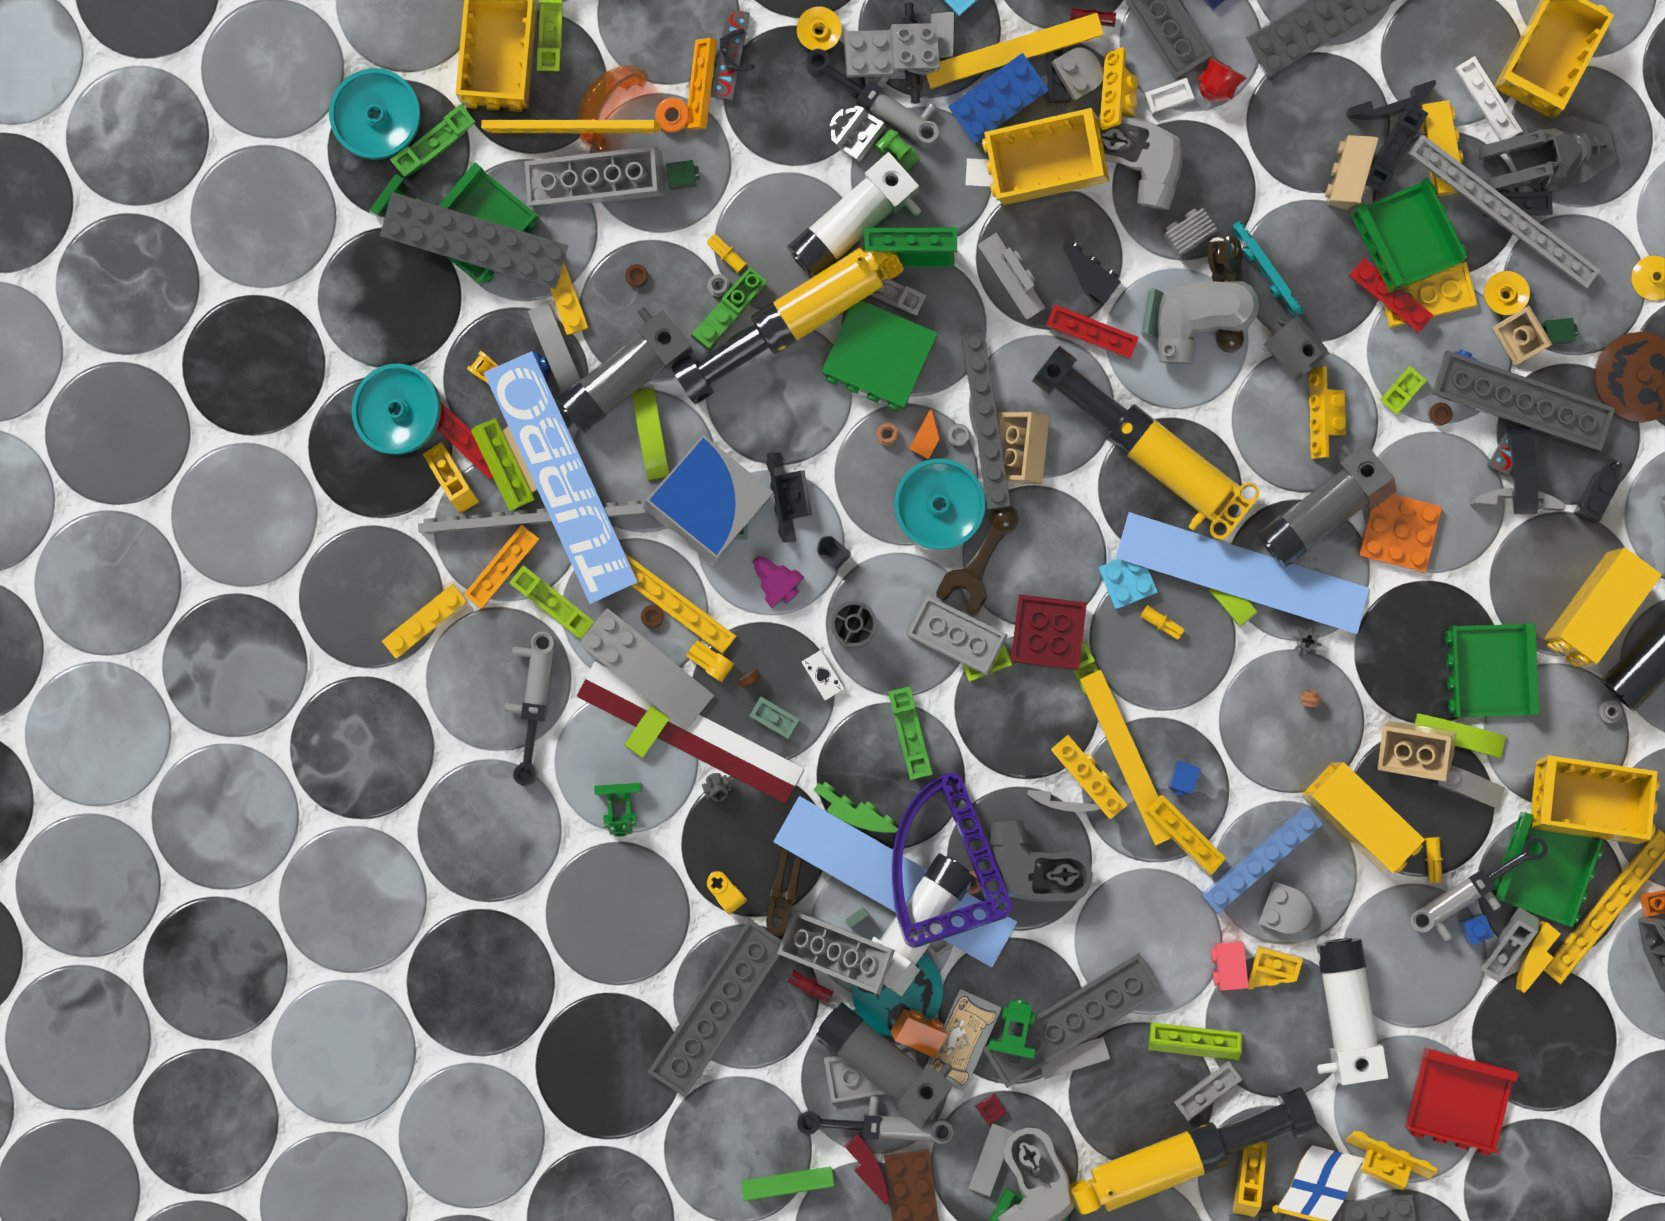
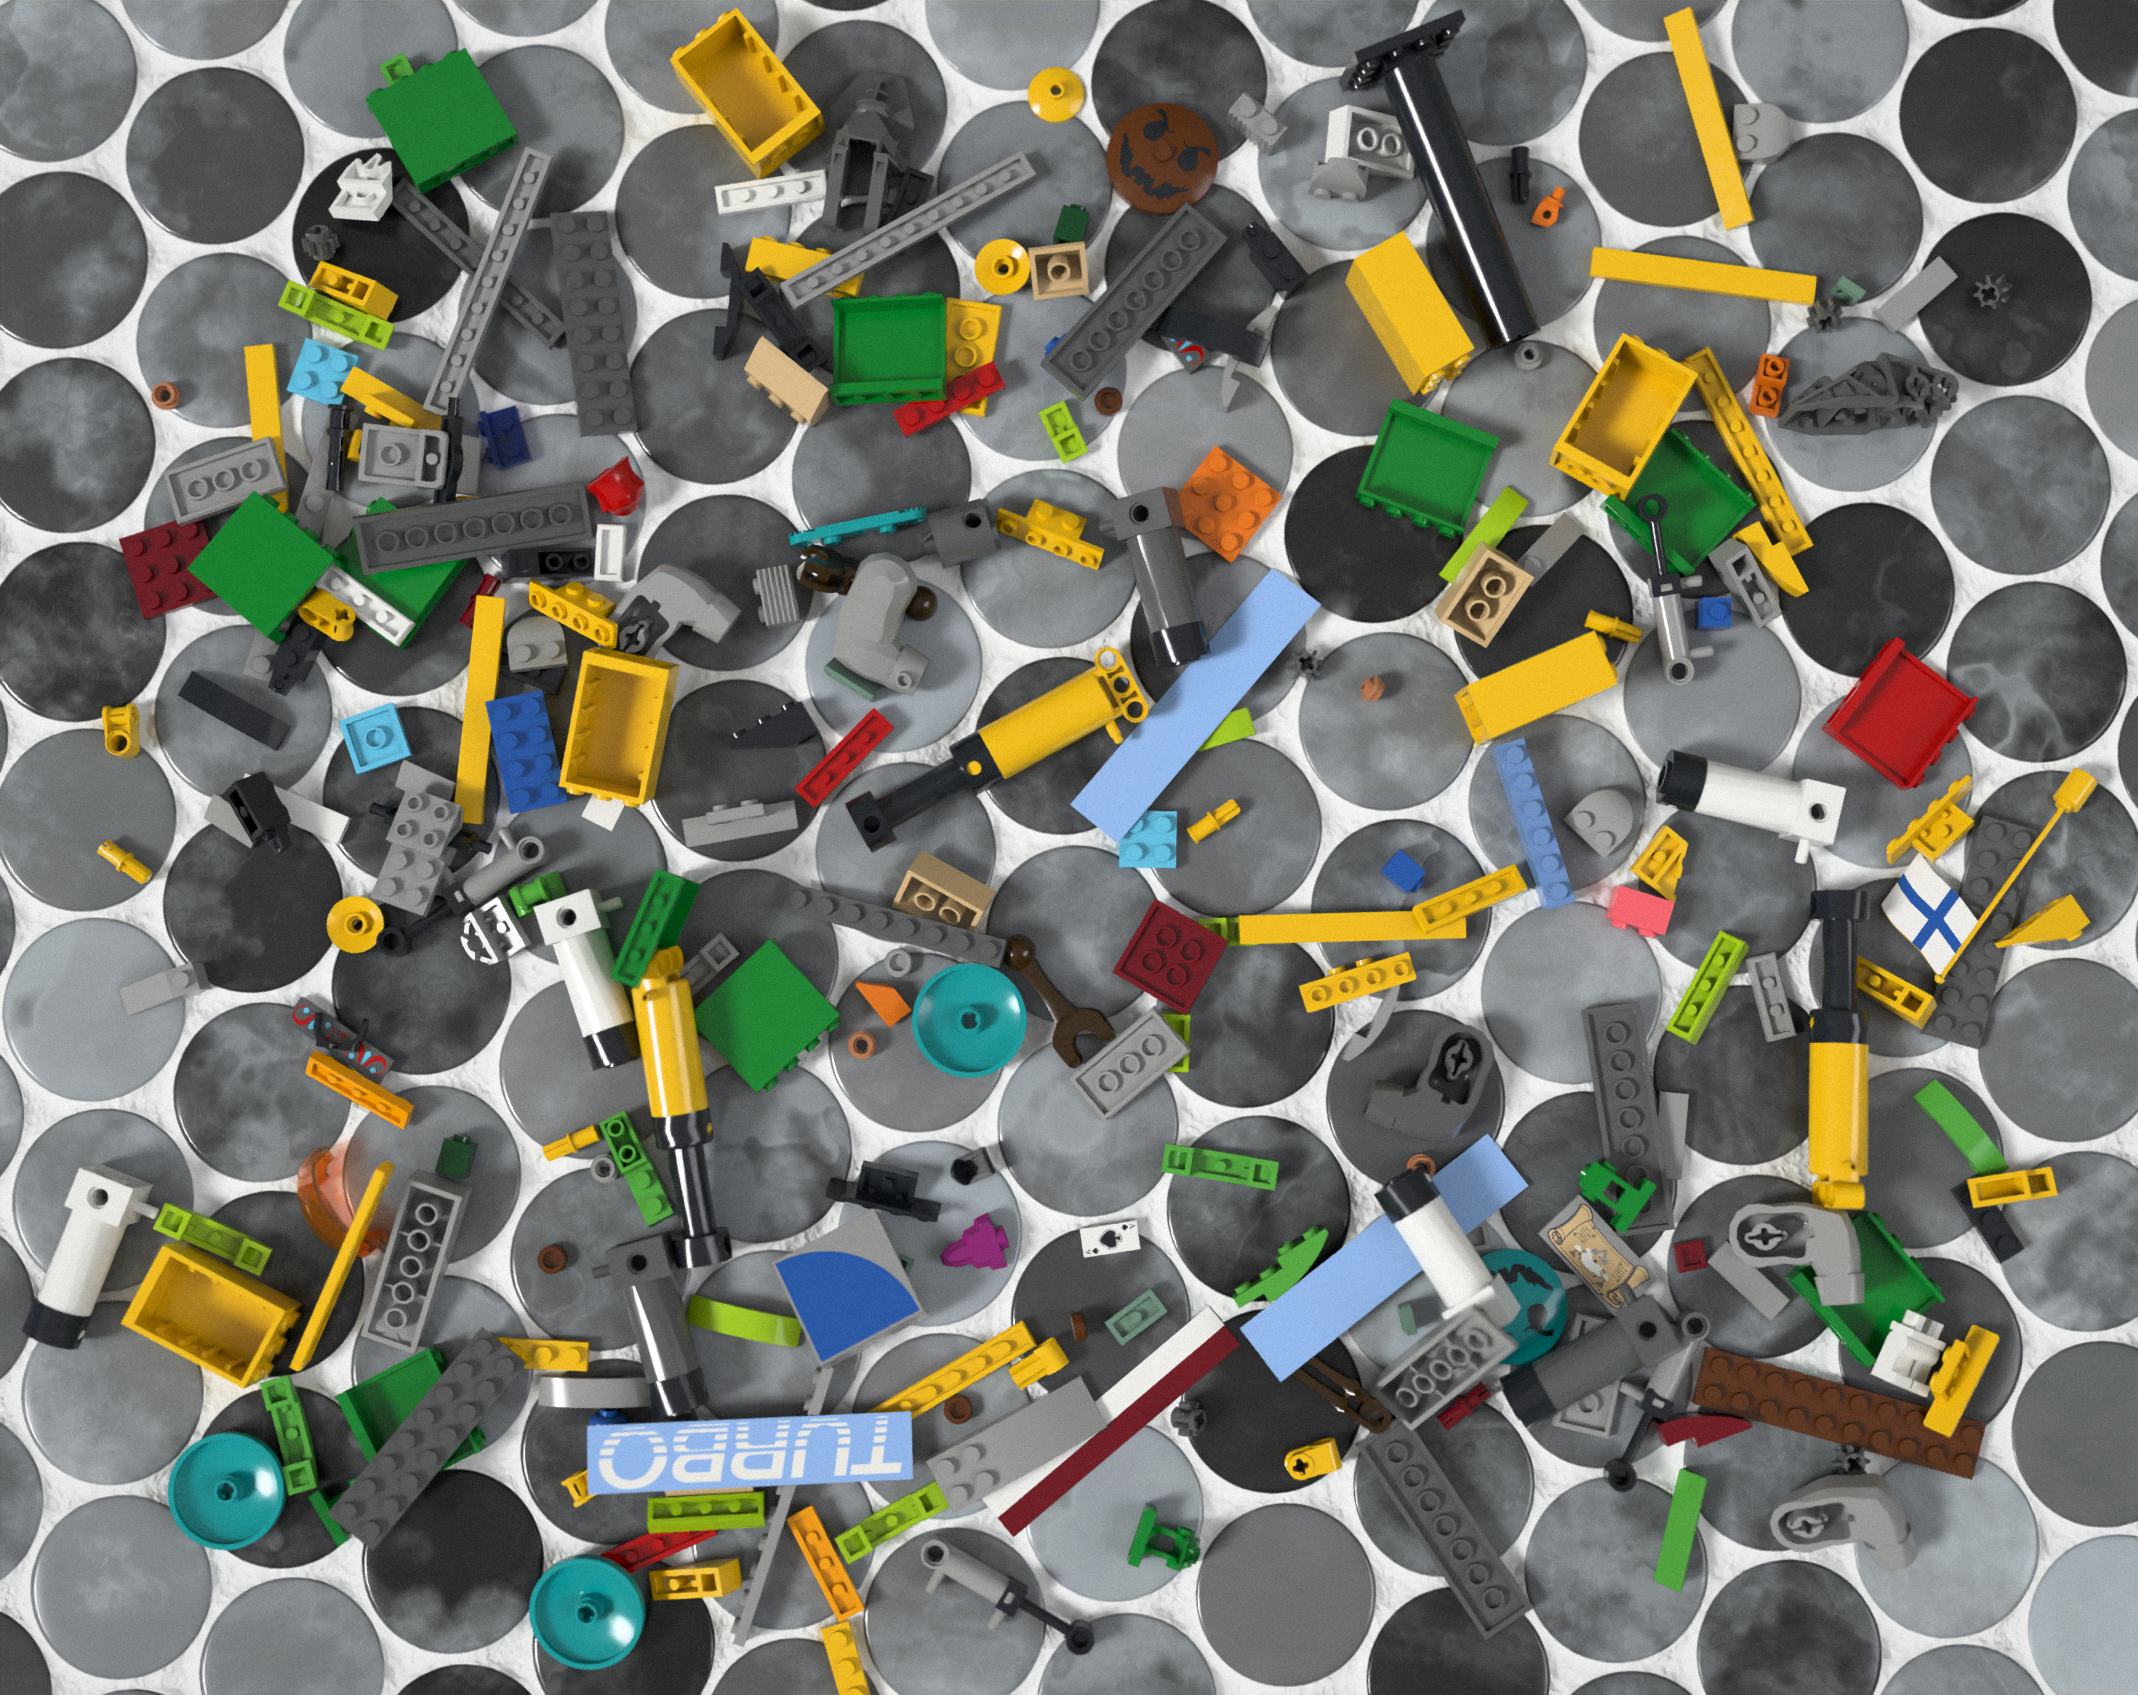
camera: 70 degrees left, 0 degrees up
(646, 731) = (1089, 1473): lime slope -> none
(670, 104) = (372, 1147): orange piece -> none
(858, 614) = (1078, 1190): dark grey cylinder -> none
(919, 1032) = (1570, 1304): orange brick -> none
(988, 906) = (1396, 1154): dark purple beam -> none
(1140, 53) = (546, 564): none -> black slope

